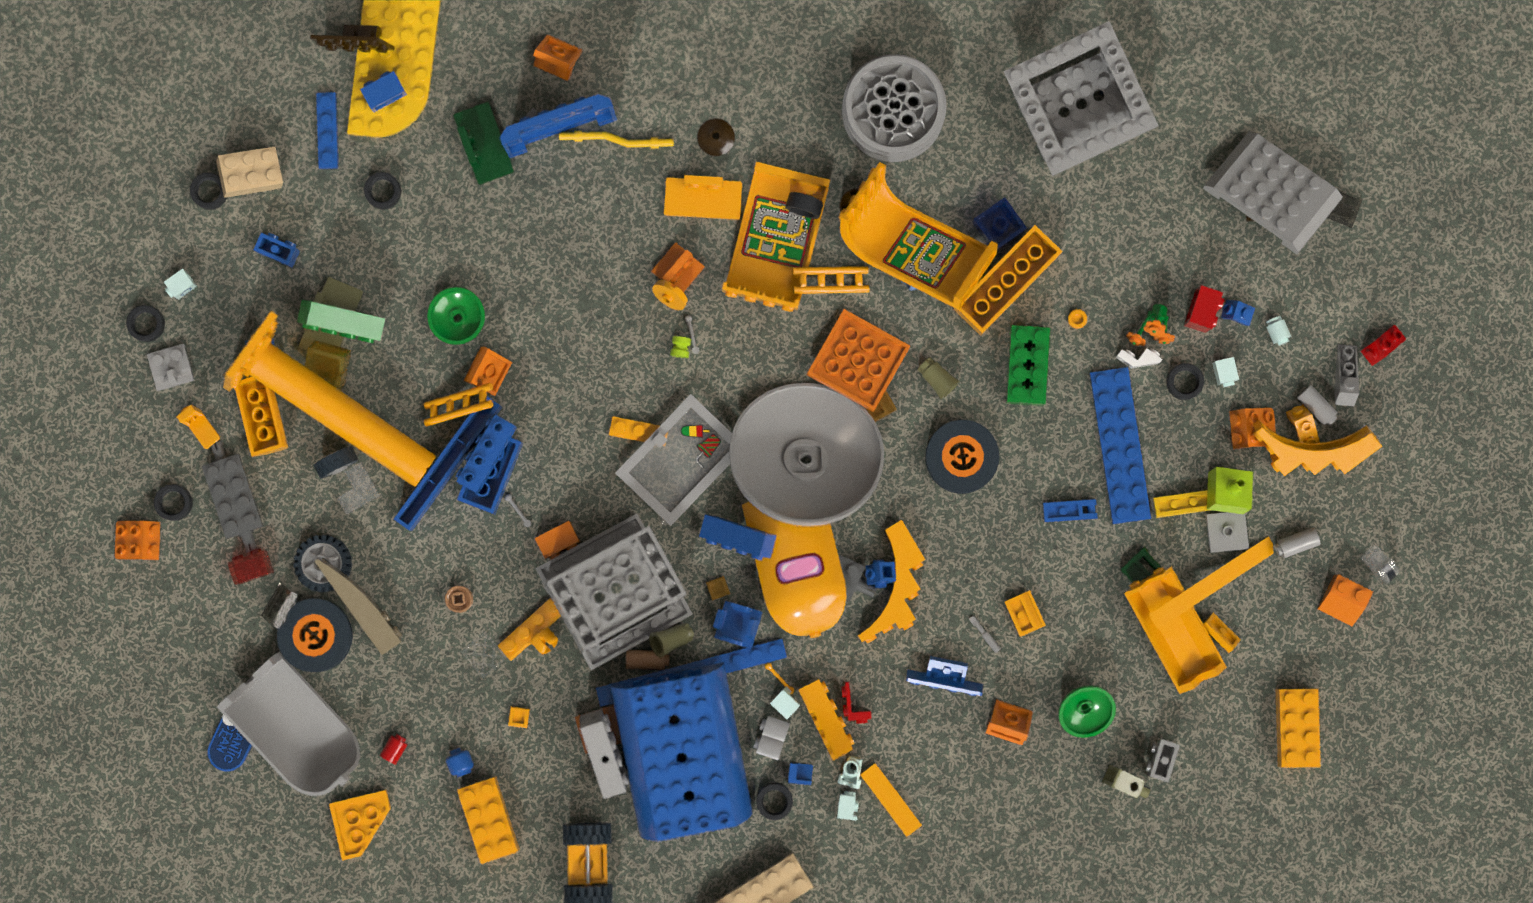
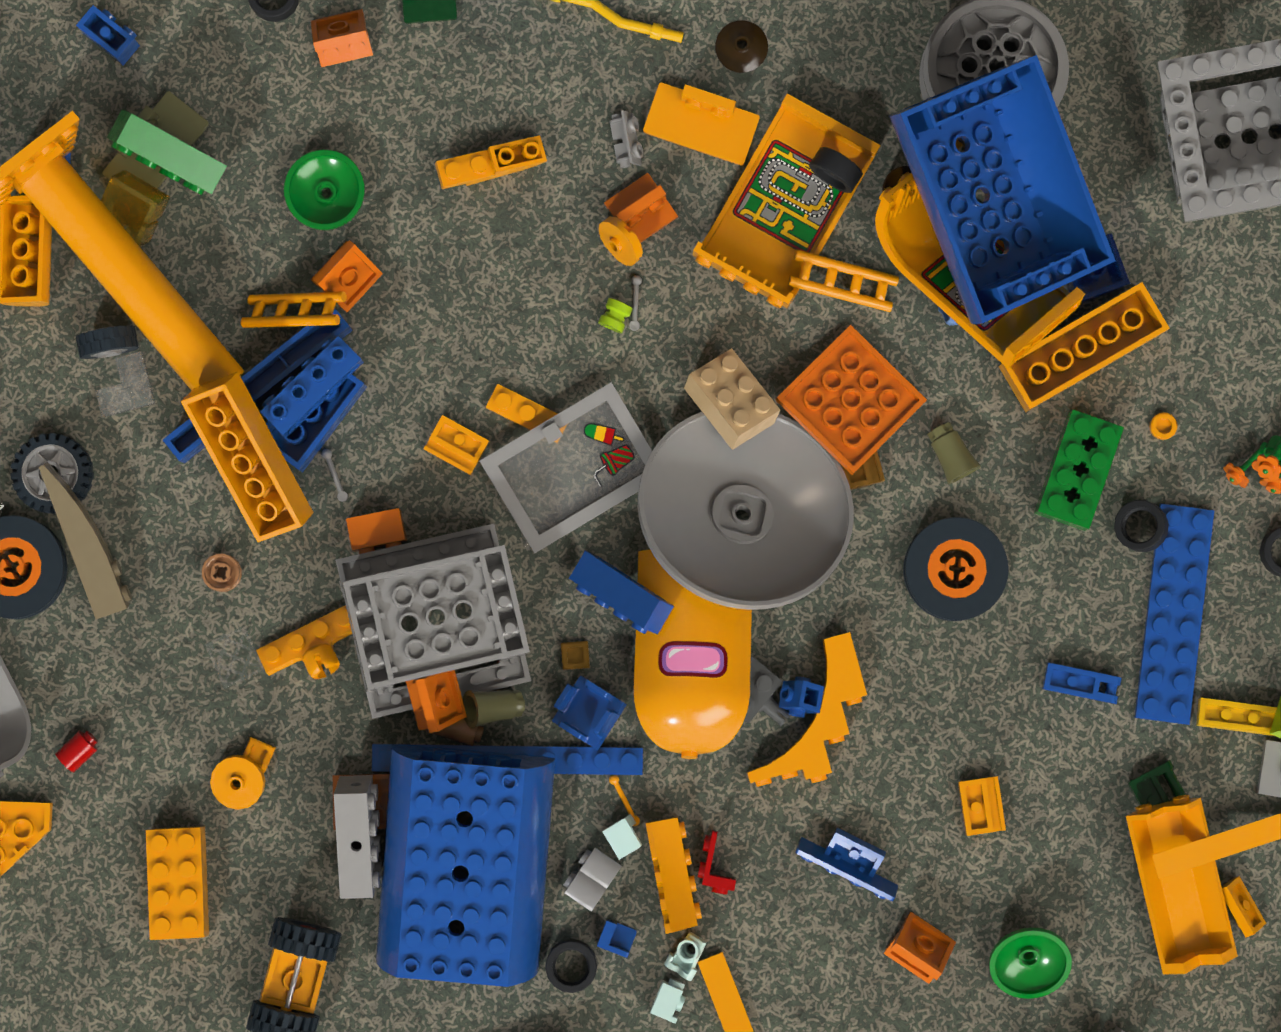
camera: 15 degrees right, 0 degrees up
(438, 207) = (341, 38): none -> orange bracket
(455, 514) = (247, 457): none -> light orange brick
(459, 762) = (160, 793): blue head -> none
(512, 730) = (246, 772): none -> light orange plate
(565, 265) = (491, 163): none -> light orange slope
(596, 466) = (456, 445): none -> light orange plate
(632, 645) = (436, 701): none -> orange bracket
(651, 215) = (625, 127): none -> light grey hinge
(776, 382) = (732, 399): none -> tan brick
(941, 186) = (1029, 184): none -> blue slope
(985, 634) = (920, 819): light grey piece -> none
(1094, 395) = (1126, 511): none -> black tyre
(1147, 358) = (1244, 505): white slope -> none

